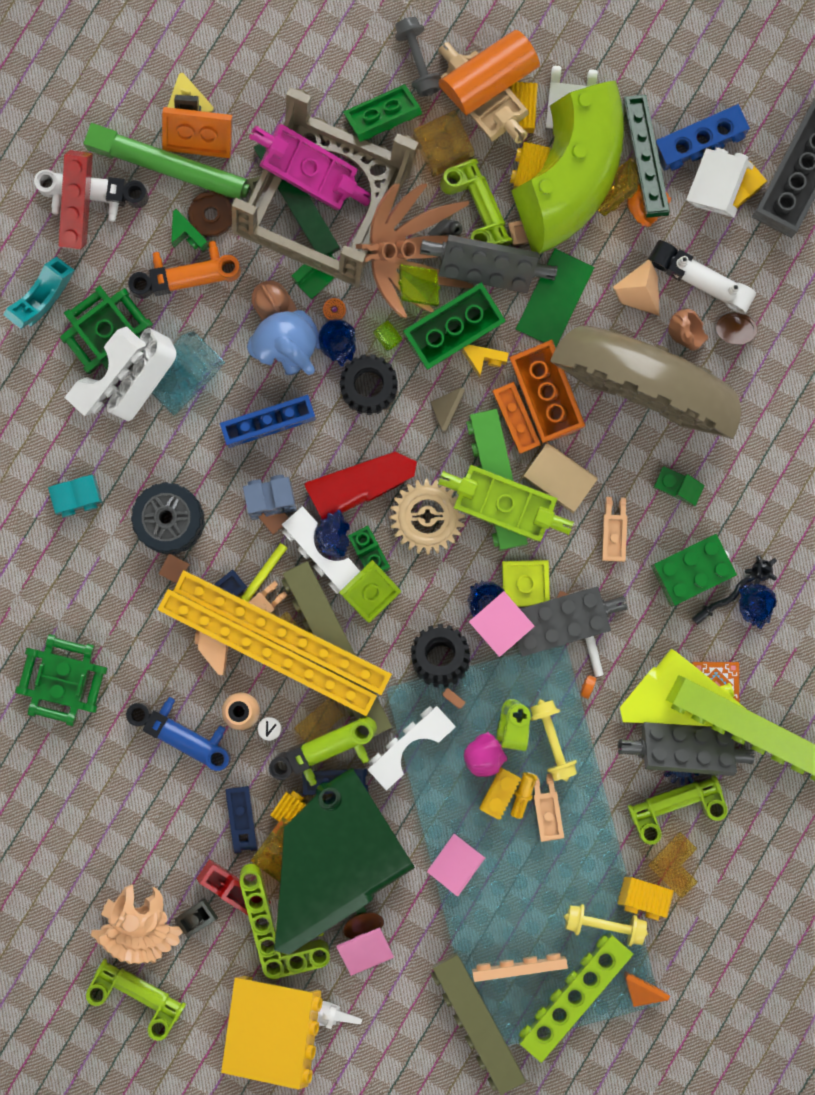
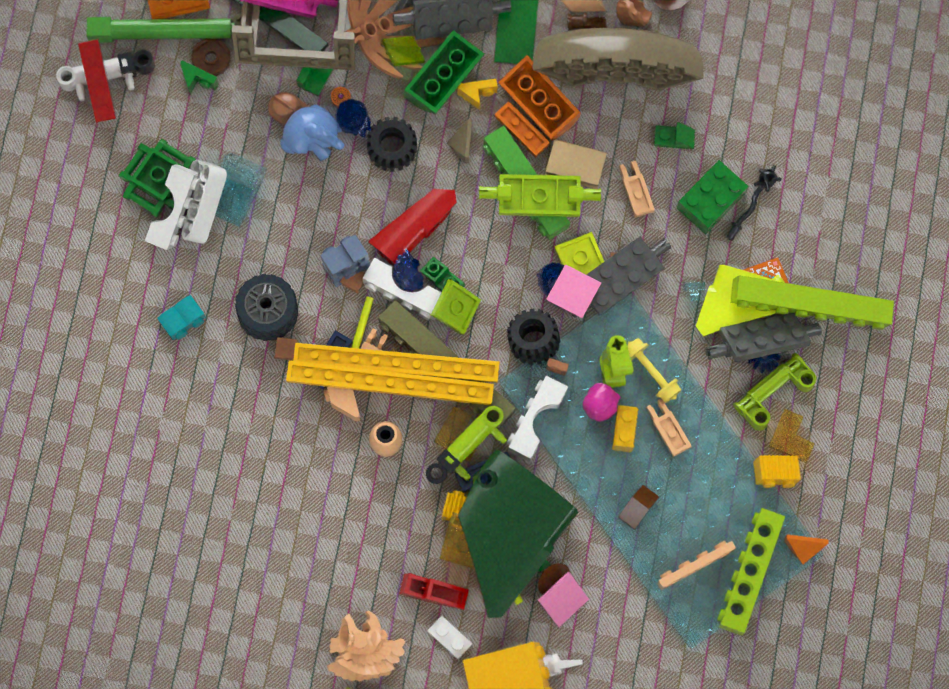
camera: 20 degrees left, 10 degrees down
(41, 295) = (96, 165): teal arch -> none
(61, 680) = (225, 470): green brick -> none
(165, 280) = (192, 121): orange piece -> none
(176, 735) = (323, 479): blue piece -> none
(196, 918) = (412, 623): pearl dark grey slope -> none
(232, 944) = (449, 637): none -> white plate
(241, 818) = (418, 530): dark blue plate -> none
(267, 421) = (320, 201): blue brick -> none
(268, 932) = (477, 610): lime beam -> none
(269, 728) = (414, 449): white tile -> none
(387, 335) = (392, 101): clear neon green beam -> none
(404, 517) = (462, 238): tan gear -> none
(456, 864) = (611, 499): bright pink piece -> none
(478, 1023) = (679, 622): olive brick -> none
(485, 881) = (638, 507): none -> slope
(523, 794) = (644, 423): yellow axle -> none
(588, 686) = (663, 319): orange tile -> none
(594, 656) = (659, 295): white bar -> none
(632, 323) = (585, 22): none -> reddish brown connector
(634, 664) = (694, 288): none -> clear light blue tile
(636, 930) = (779, 499): light yellow piece -> none
(757, 604) = (774, 205): clear blue hair -> none

